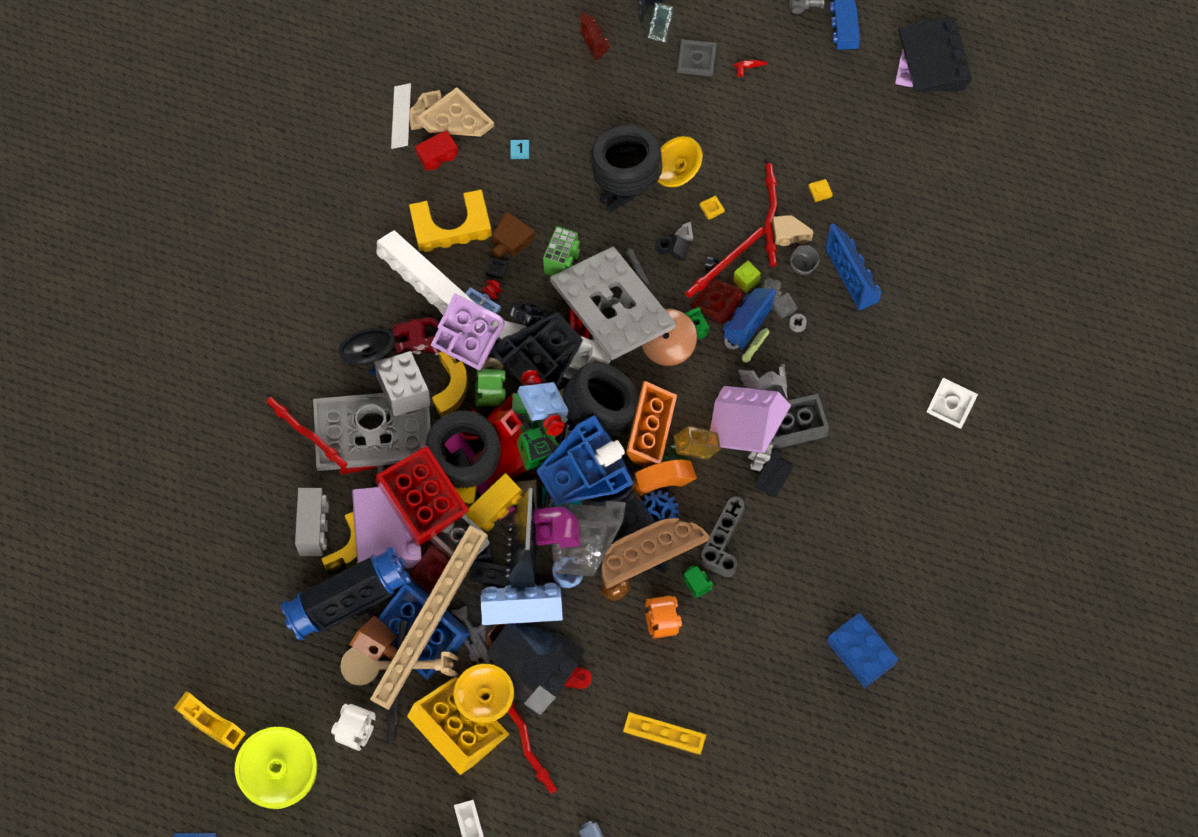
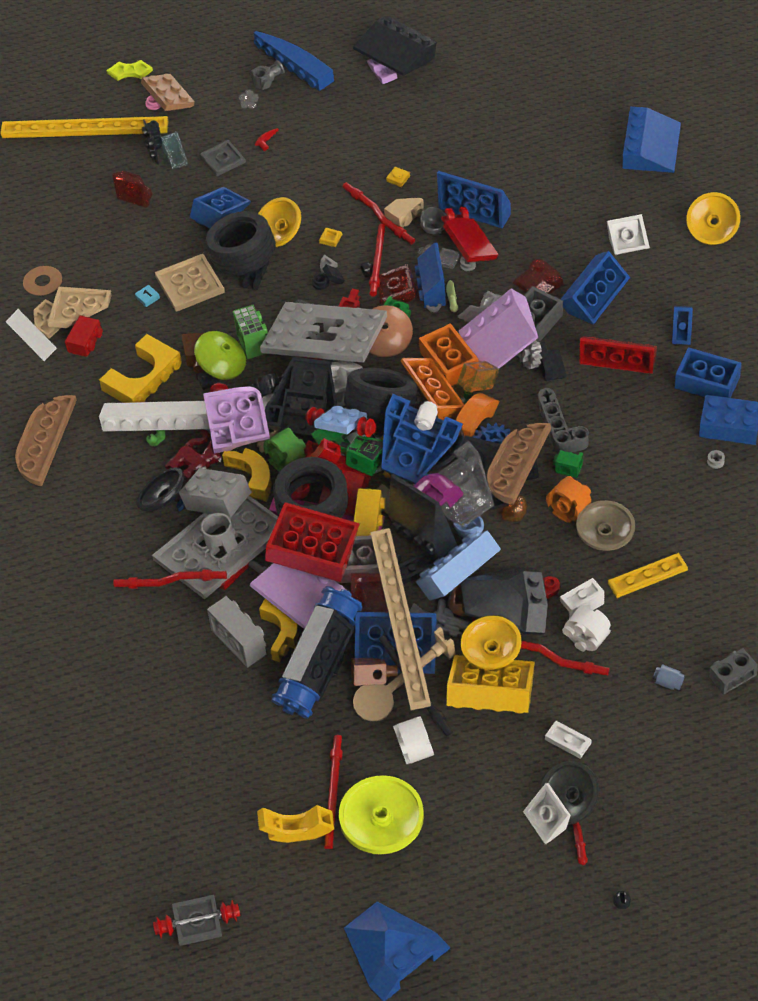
camera: 35 degrees left, 15 degrees down
(80, 737) = (196, 920): none -> dark grey plate
(293, 688) = (336, 756): none -> red bar
(327, 222) = (43, 438): none -> medium nougat plate
(408, 293) = (156, 439): none -> bright green arm
(456, 80) = (32, 288): none -> medium nougat gear
(509, 259) = (220, 355): none -> lime dish
(561, 163) = (189, 282): none -> tan plate
(567, 743) = (587, 628): none -> white brick
(589, 713) = (585, 594): none -> white panel
(648, 107) = (216, 205): none -> blue slope
(664, 289) = (352, 300): none -> red plate
(672, 651) = (609, 518): none -> dark tan dish
(695, 400) = (447, 351): none -> orange brick
(746, 276) = (402, 255): lime brick -> none
(769, 14) = (248, 100): none -> clear plant
(818, 299) = (468, 236): none -> red tile
(824, 675) = (716, 464): none -> light grey bush
(831, 511) = (617, 354): none -> red slope
(838, 387) = (540, 276): none -> clear red slope
(874, 433) = (595, 288): none -> blue slope
(883, 594) = (707, 374): none -> blue brick
(912, 527) = (682, 325): none -> blue slope
(1023, 442) = (710, 207): none -> yellow dish
(1062, 324) = (650, 141): none -> blue slope

